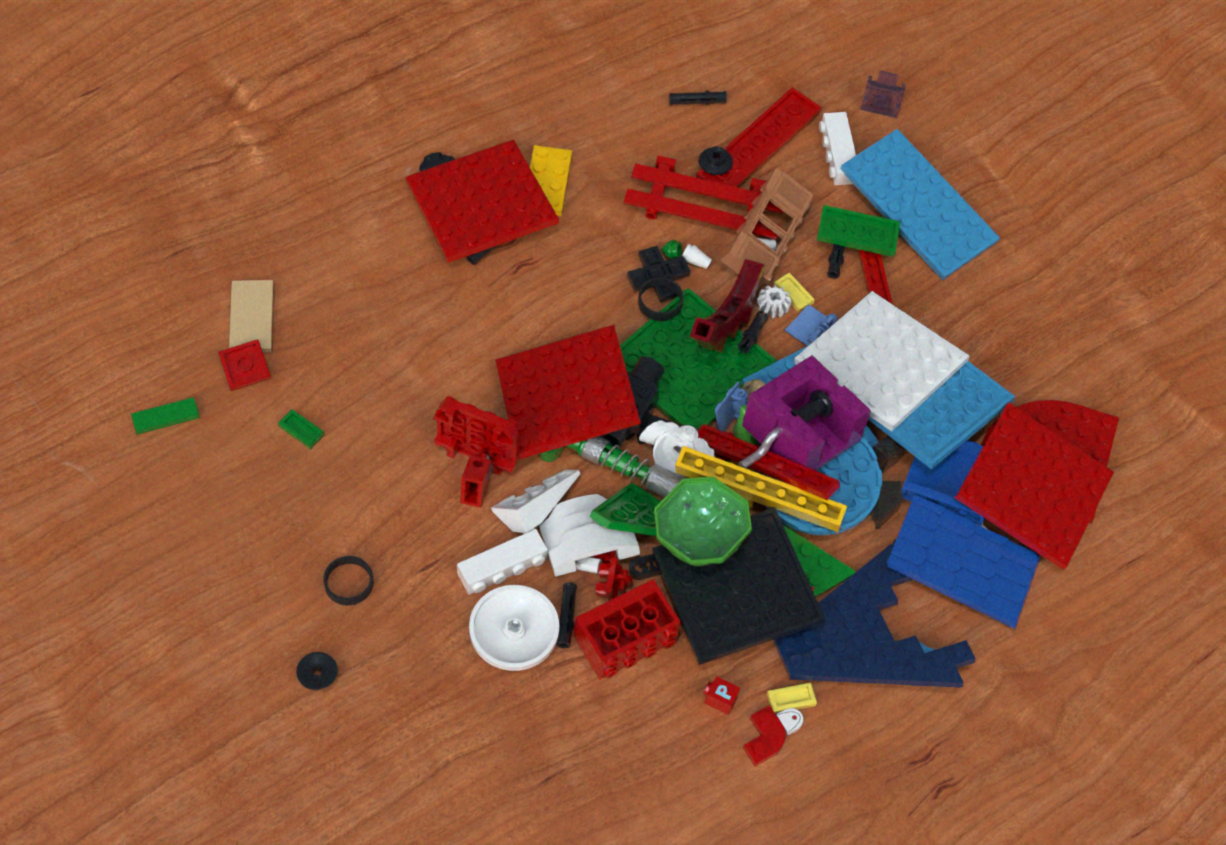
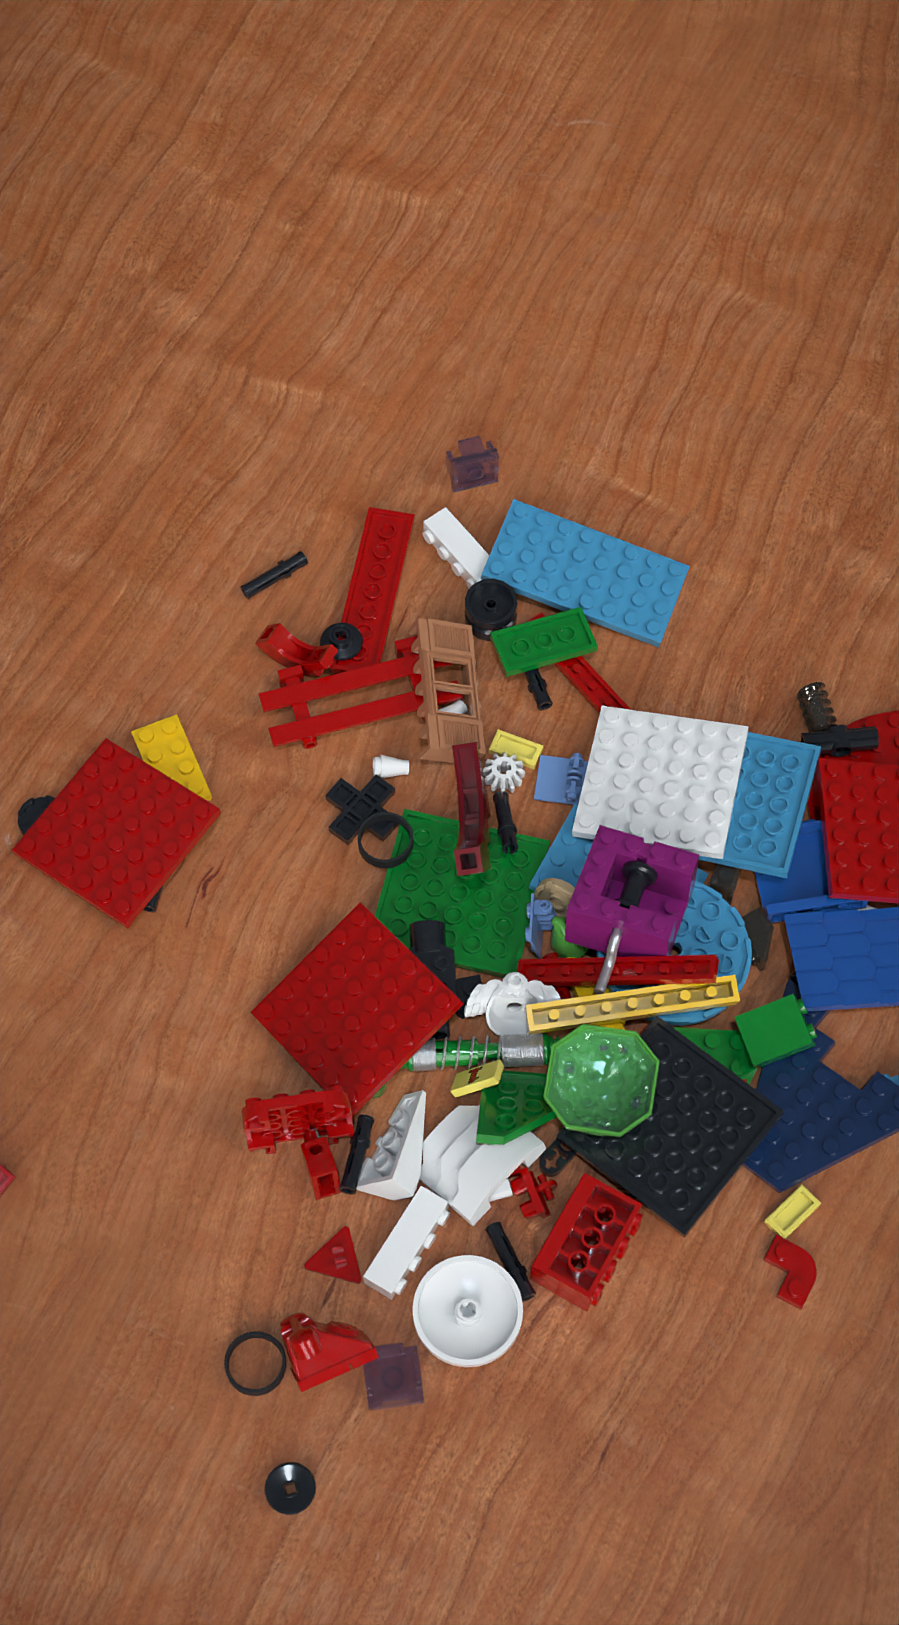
camera: 25 degrees left, 5 degrees up
(301, 429) = (88, 1218): green tile -> none
(396, 592) = (323, 1350): none -> red piece
(434, 641) = (393, 1377): none -> clear purple panel
(448, 547) = (337, 1258): none -> red piece
(513, 482) = (359, 1144): none -> black pin
(622, 483) = (477, 1078): none -> light yellow tile
(672, 249) = (358, 772): green plate -> none
(674, 147) = (290, 651): none -> red arch
(721, 695) = (723, 1254): red brick -> none
(791, 720) = (807, 1237): white tile -> none
(835, 189) = (490, 607): none -> black wheel
(856, 566) = (776, 1030): none -> green brick
(1032, 377) = (816, 707): none -> clear smoke piece
(1036, 404) = (842, 741): none -> black piece

